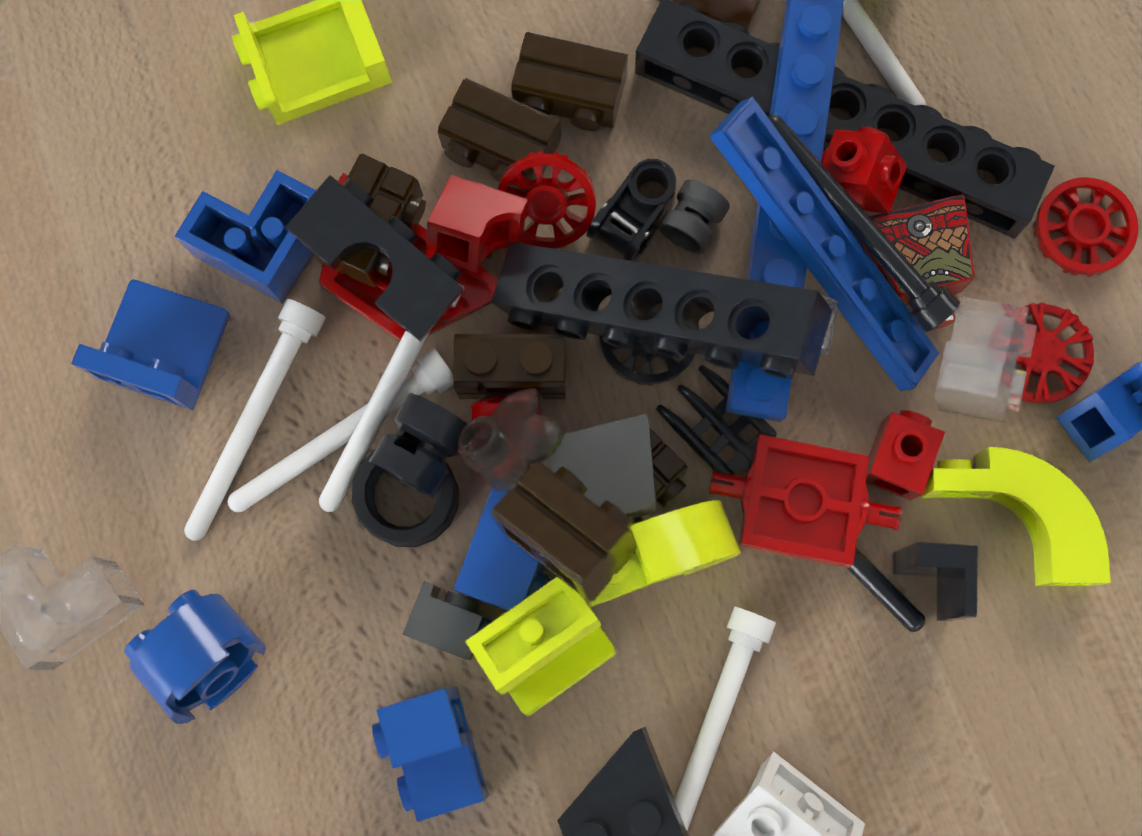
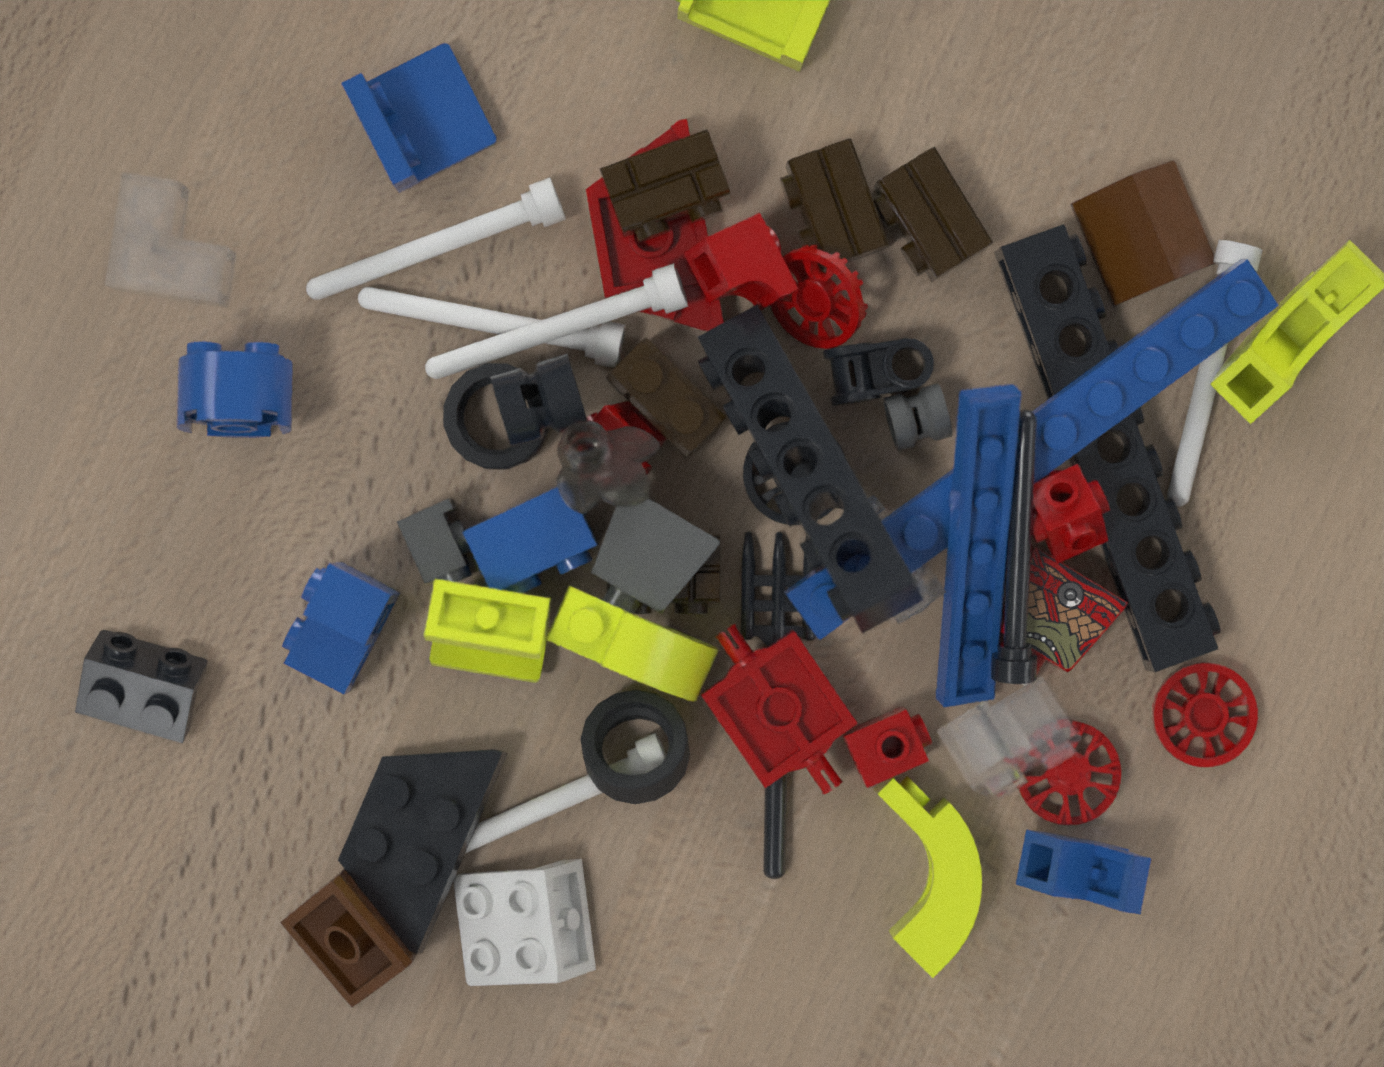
camera: 40 degrees right, 10 degrees up
(254, 245) = (572, 125): blue brick -> none
(341, 222) = (639, 182): black arch -> none
(566, 529) = (577, 572): dark brown brick -> none
(707, 596) = (627, 707): none -> black tyre
(955, 572) = (834, 861): black panel -> none

